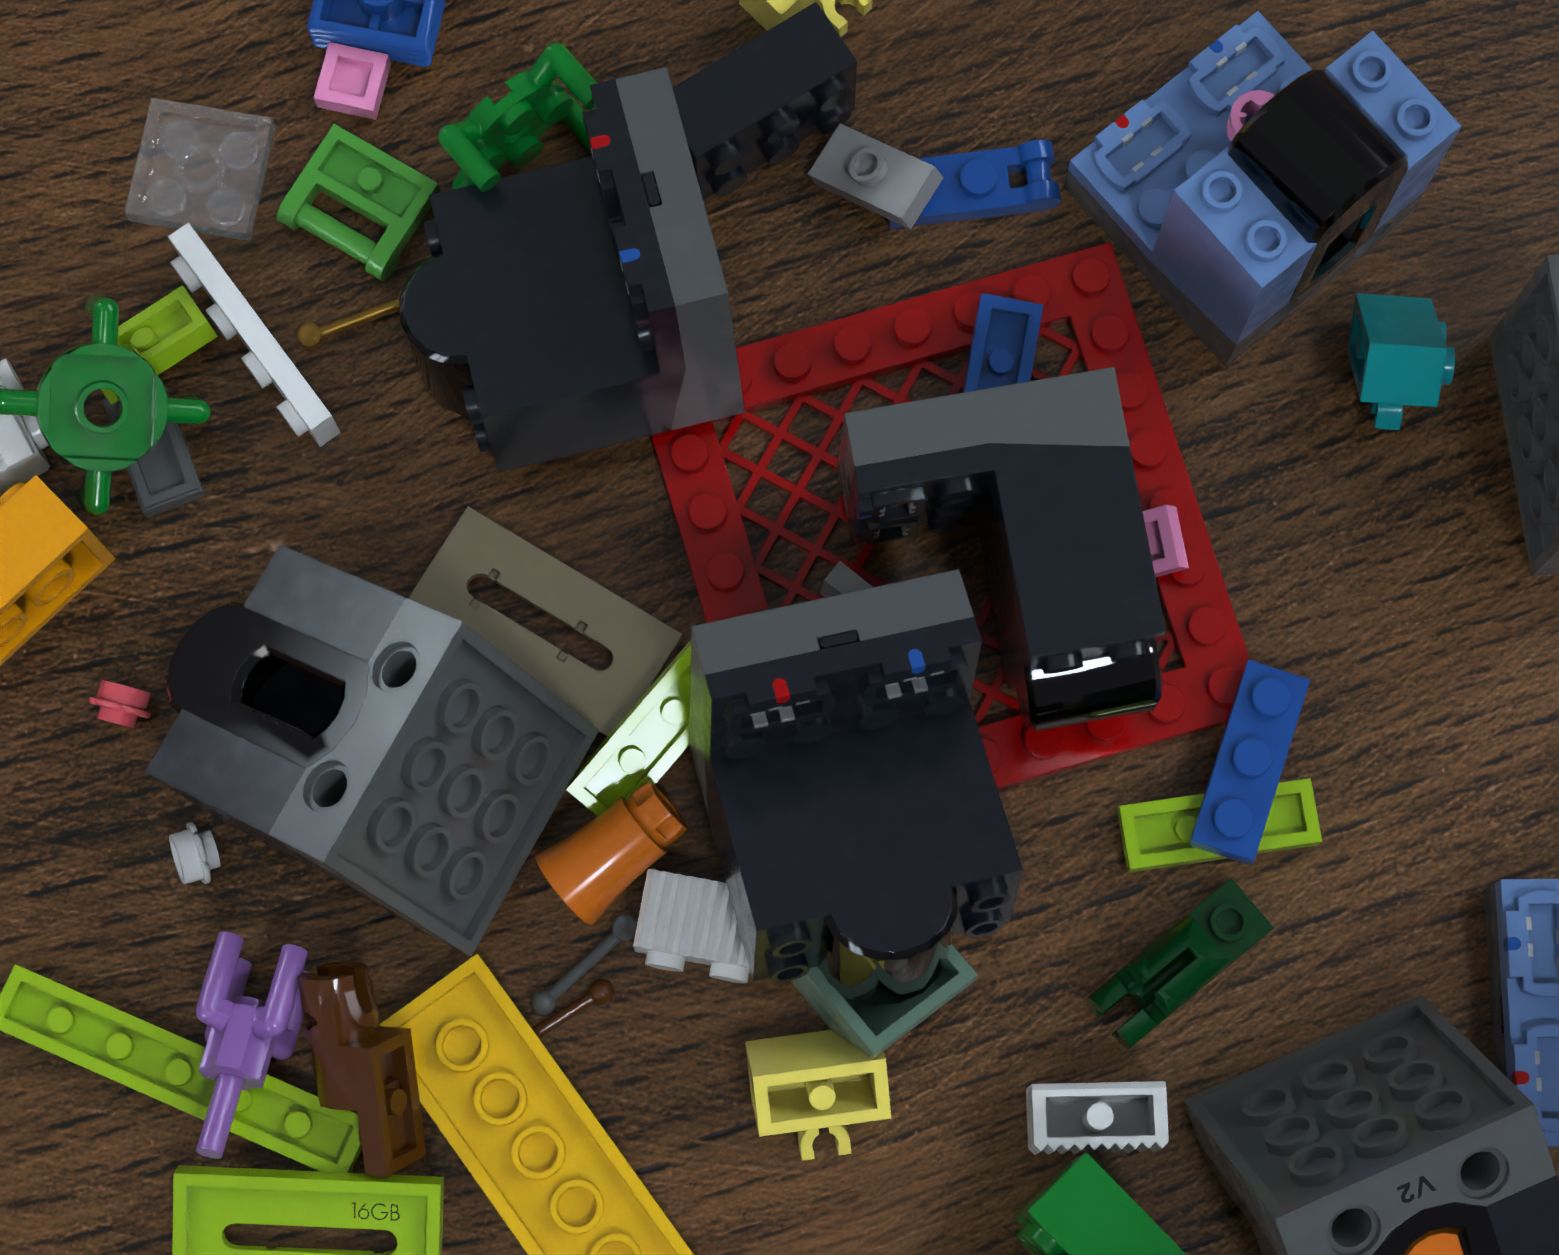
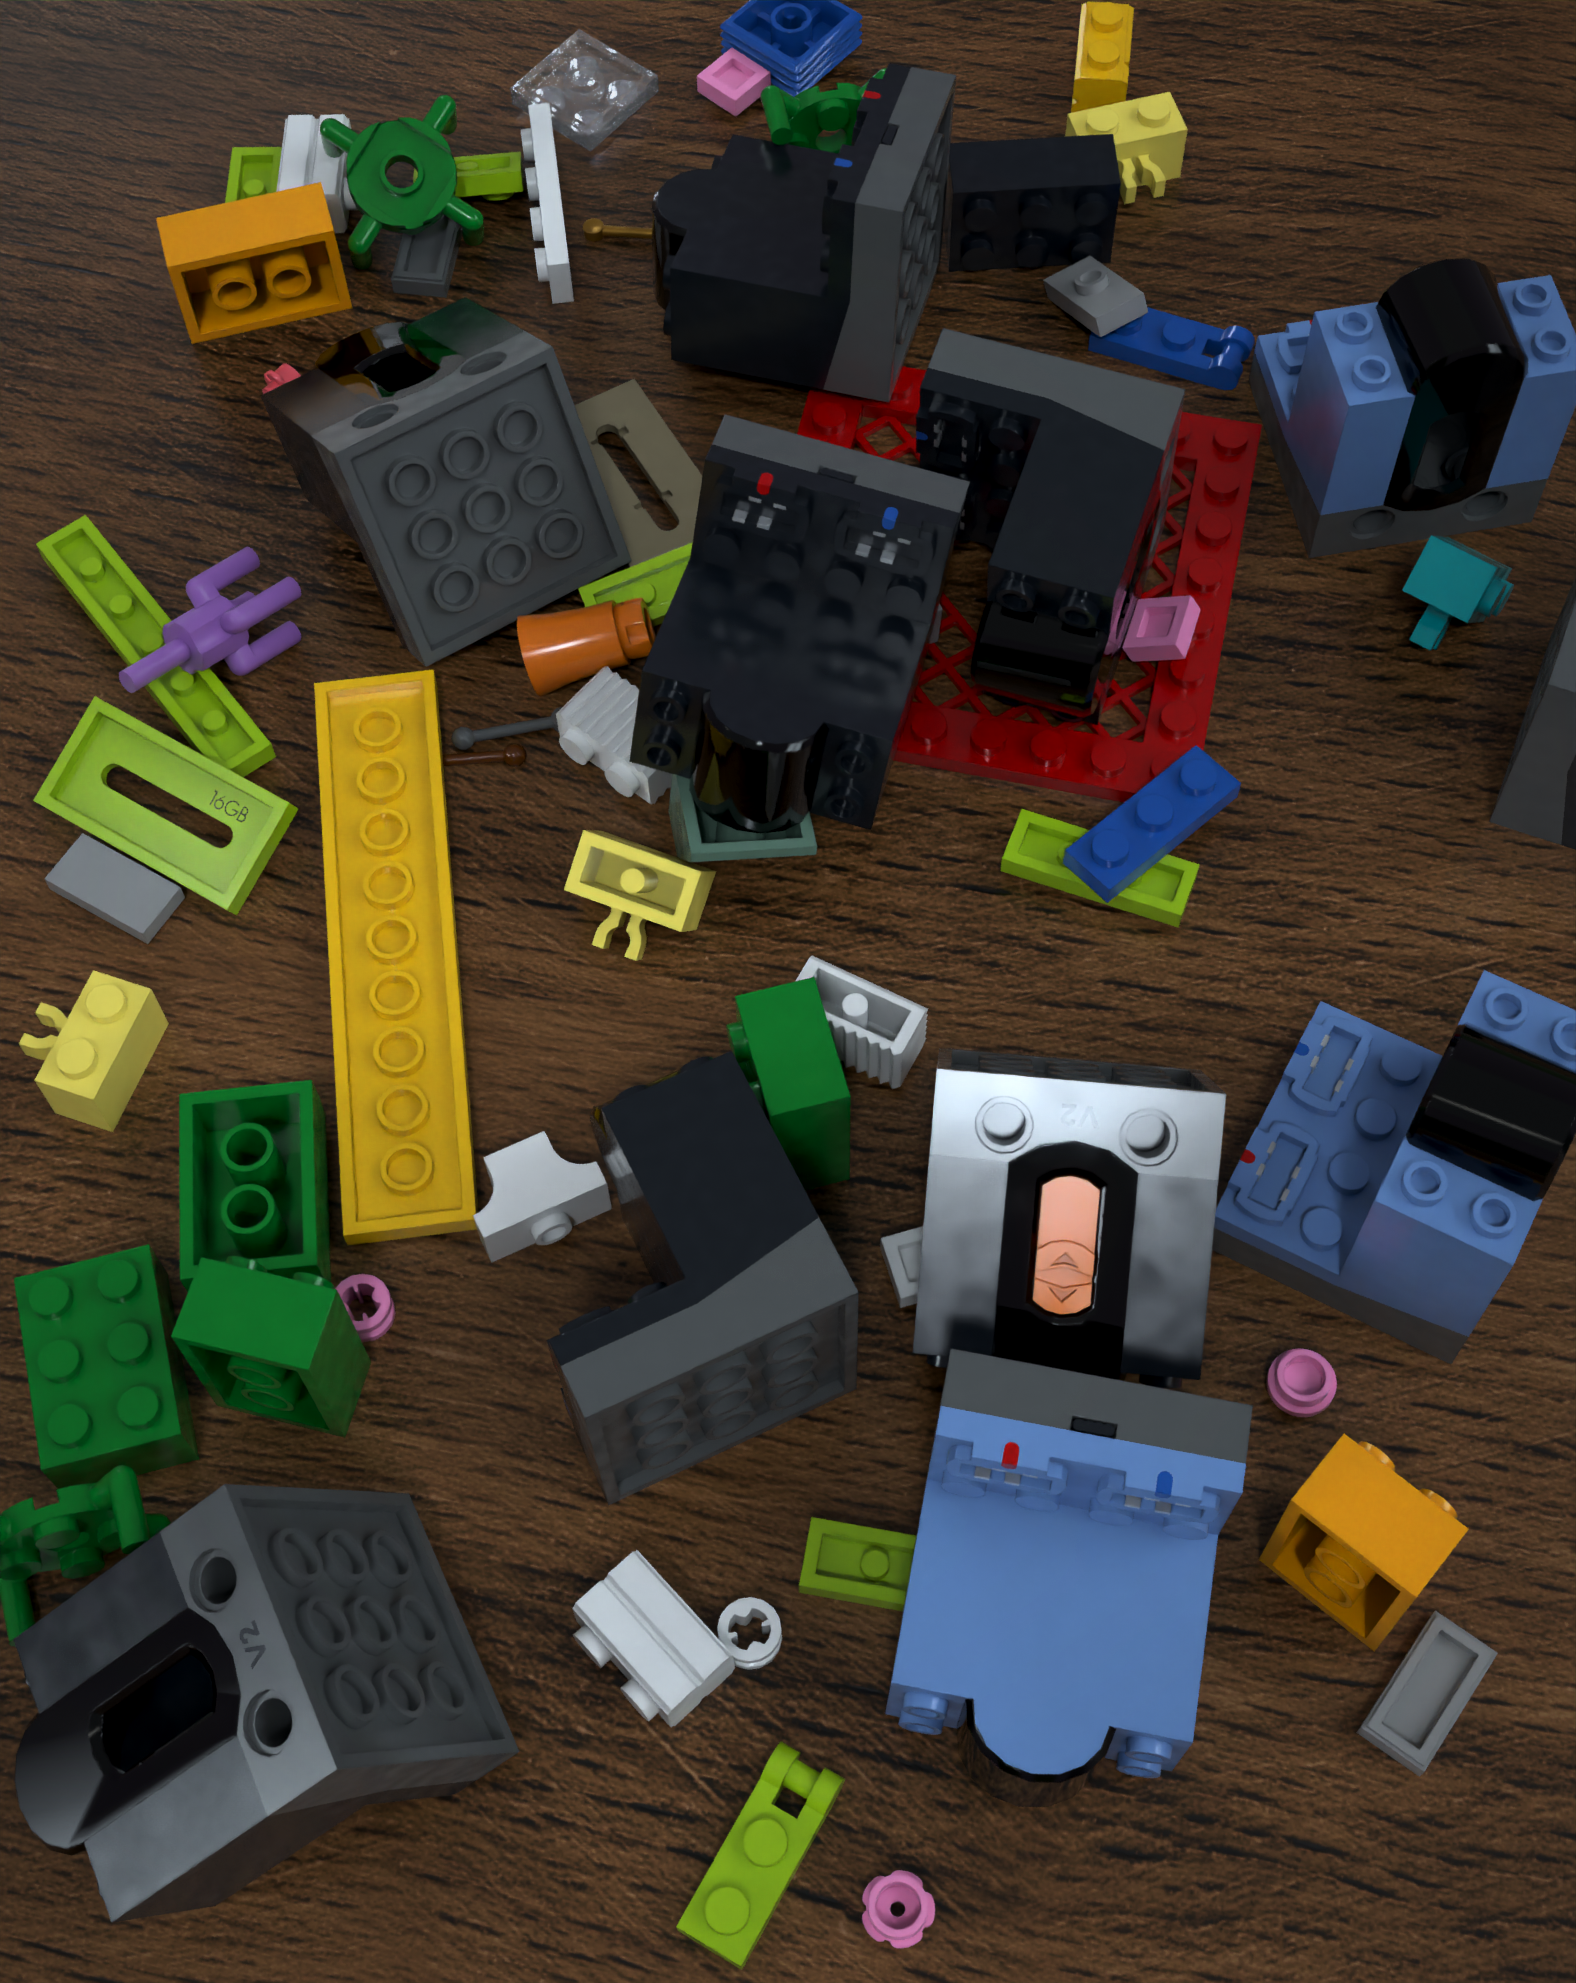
camera: 30 degrees right, 15 degrees down
(194, 854) = (269, 510): white plate -> none
(363, 1065) = (290, 696): reddish brown plate -> none
(367, 184) = (687, 131): bright green plate -> none
(1182, 961) = (1000, 949): dark green plate -> none

